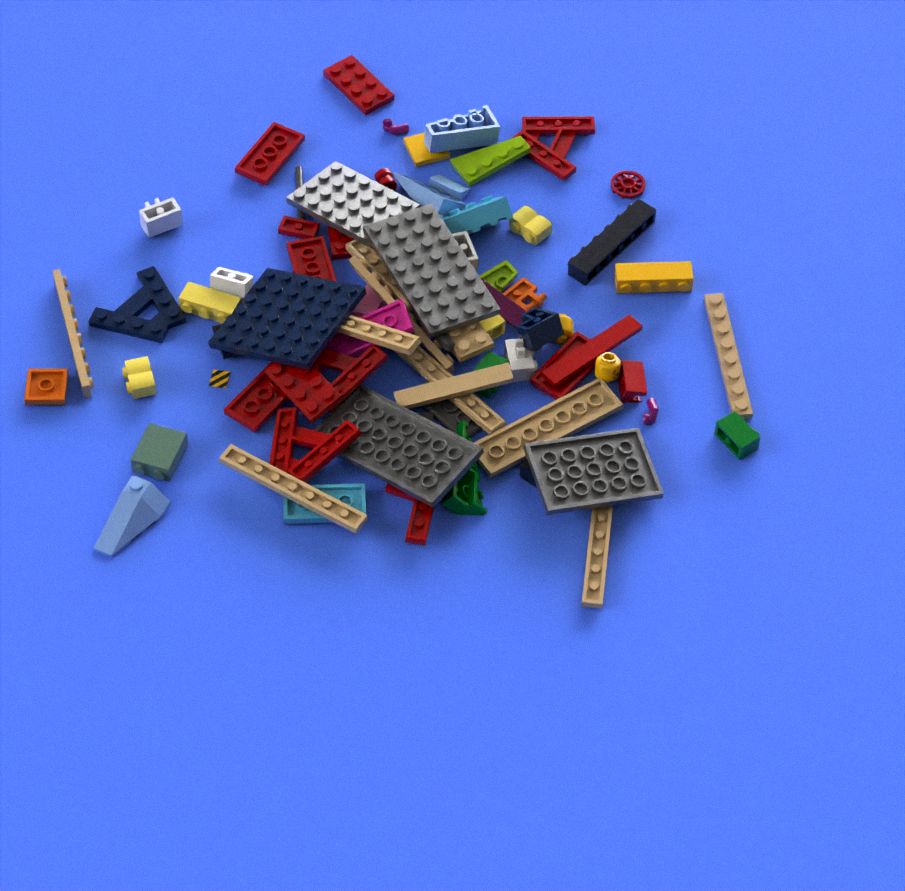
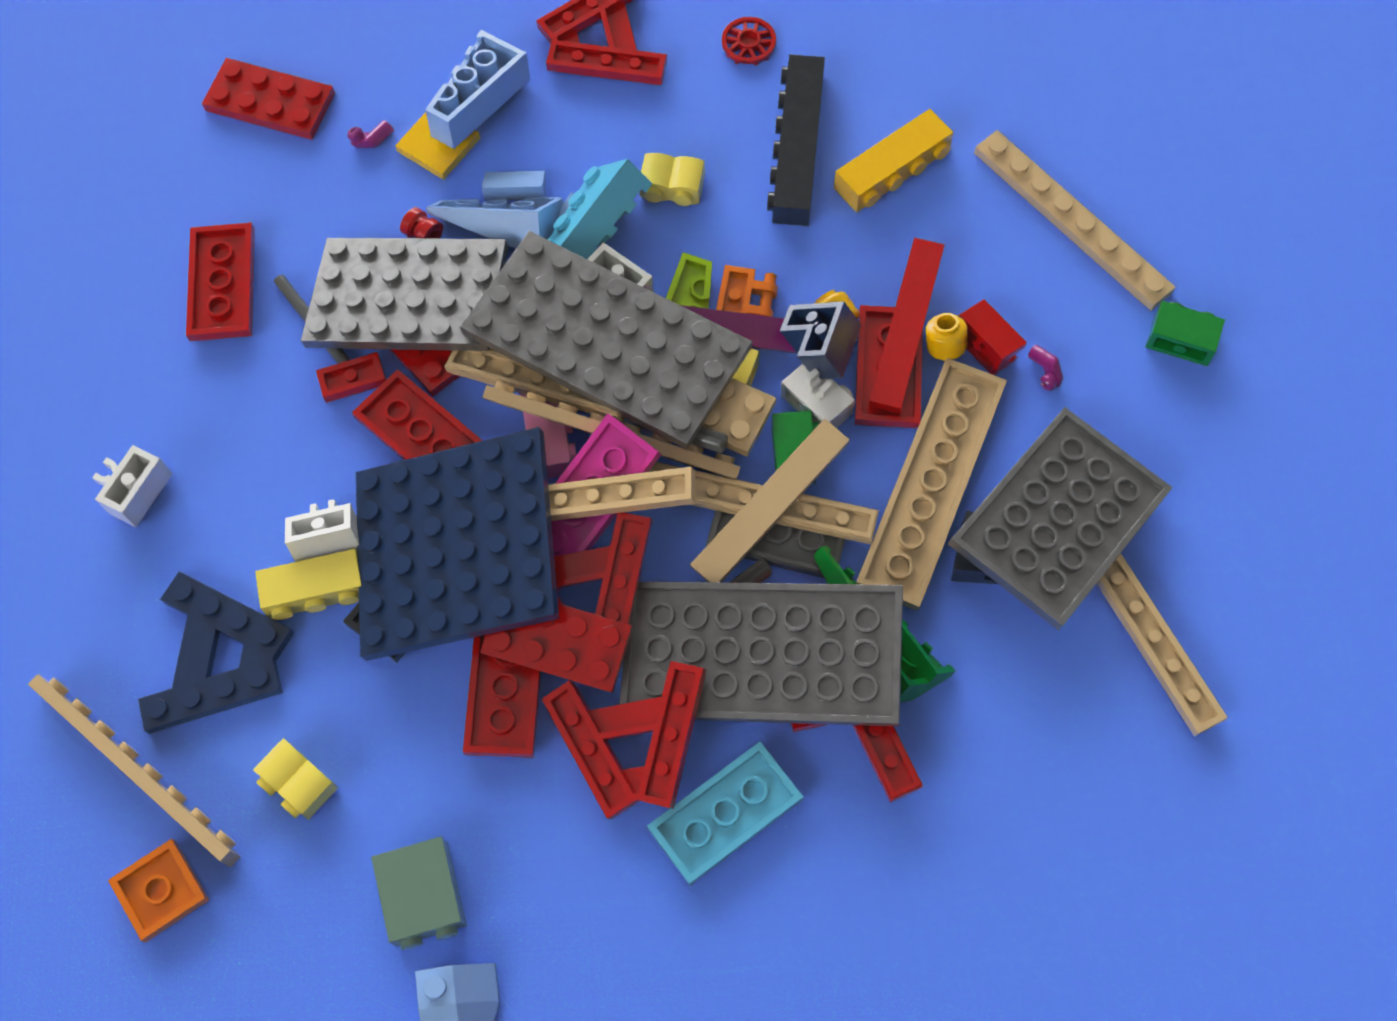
camera: 30 degrees left, 15 degrees up
(219, 378) = (413, 698): sticker -> none
(293, 488) = (669, 826): tan plate -> none
(488, 160) = (539, 113): lime wing -> none

